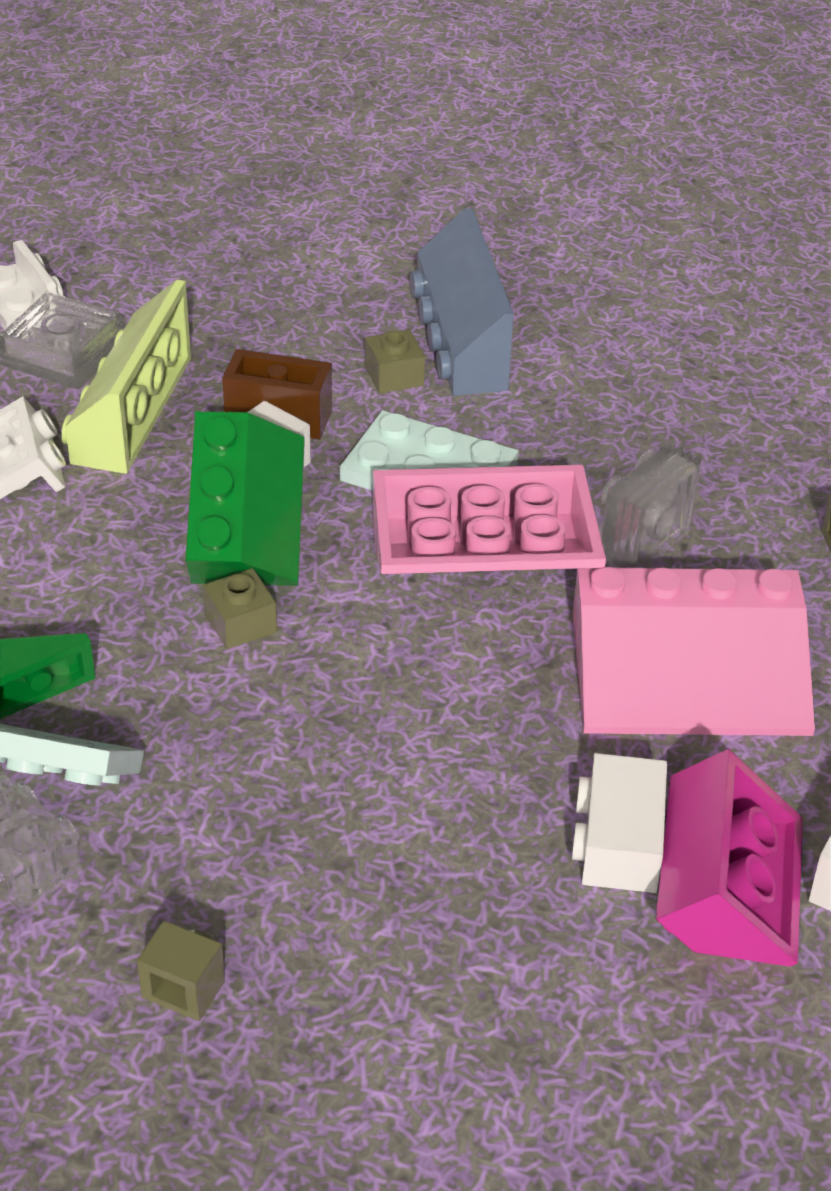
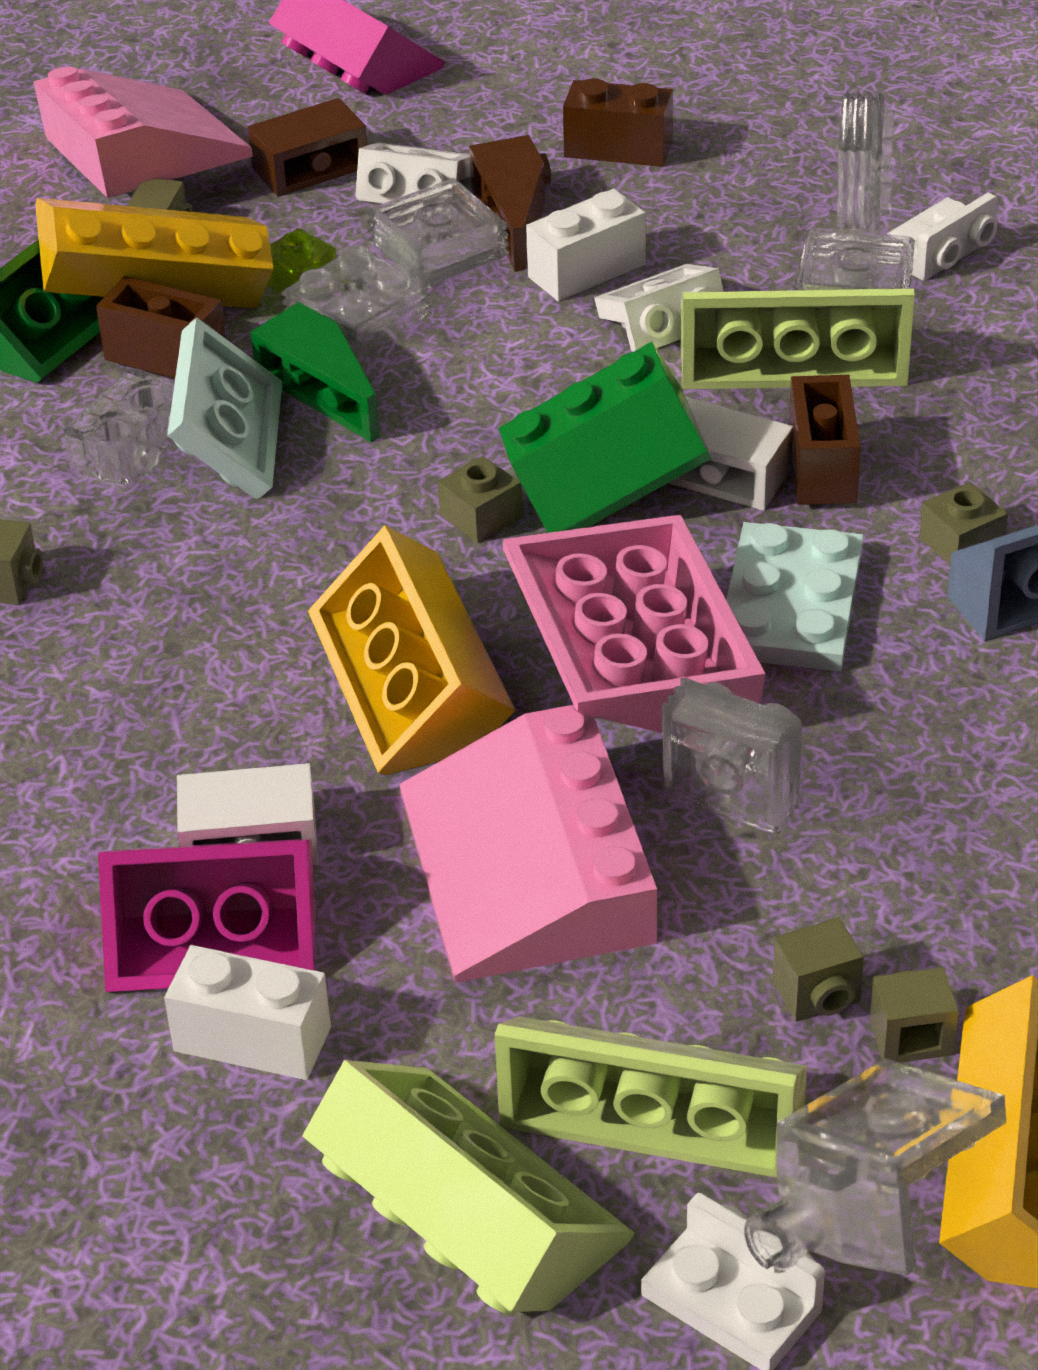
camera: 80 degrees right, 0 degrees up
(441, 689) = (408, 655): none -> yellow slope

